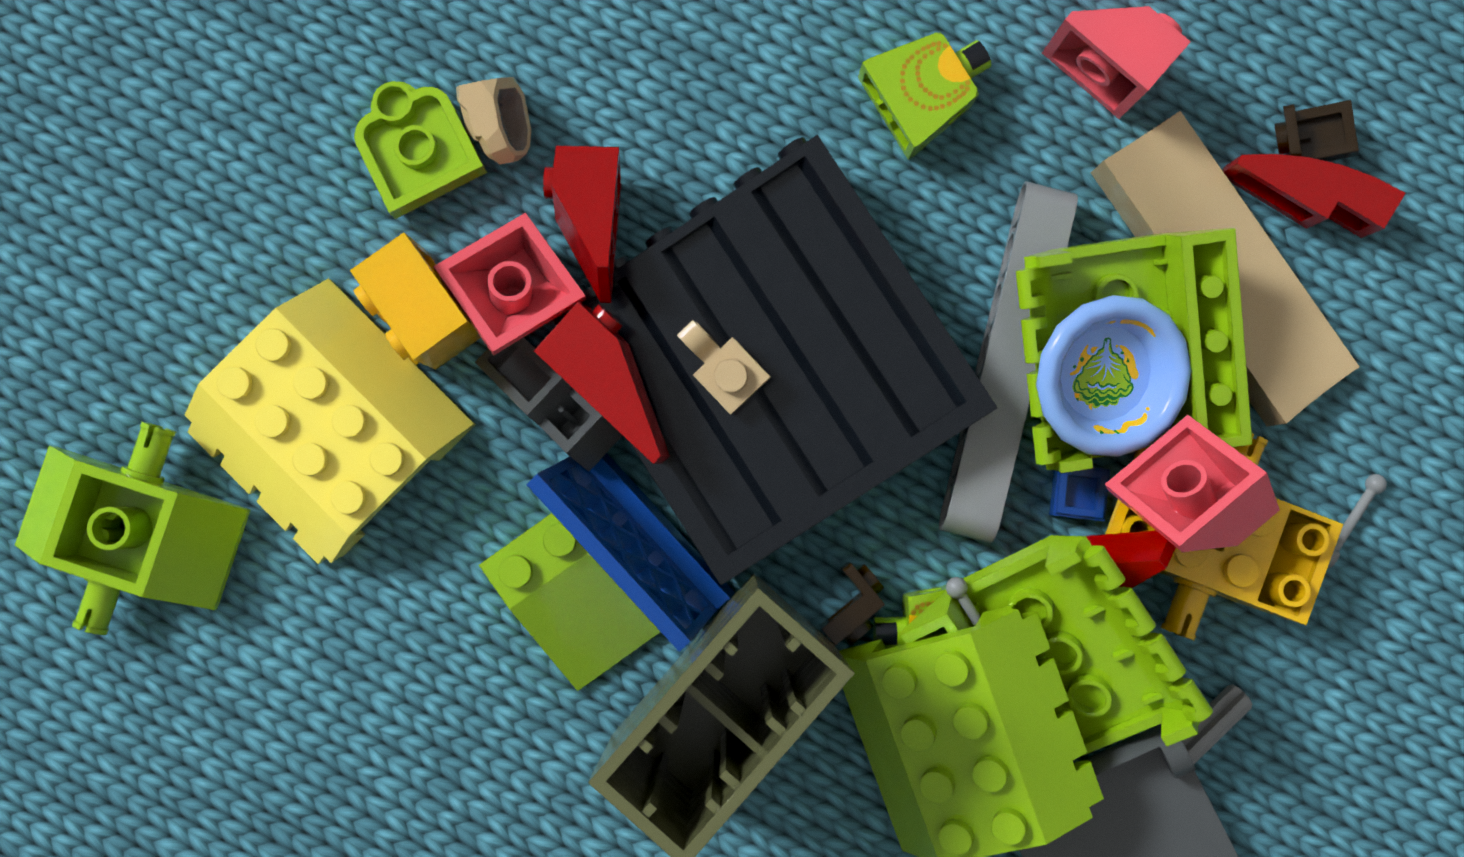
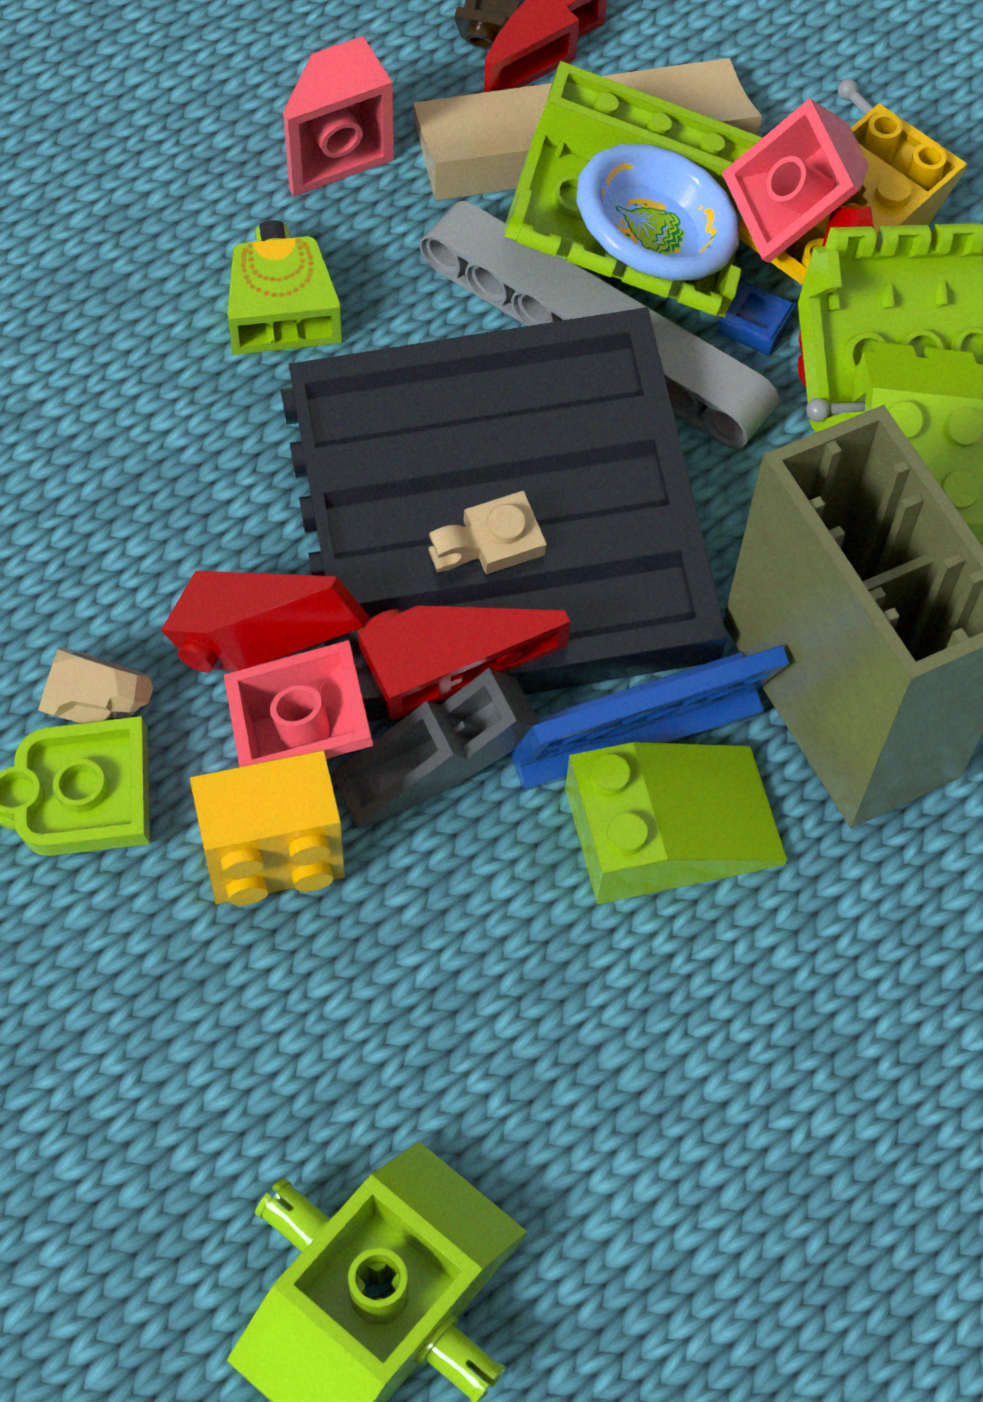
camera: 70 degrees left, 25 degrees down
(322, 419) = (357, 1016): light yellow slope -> none

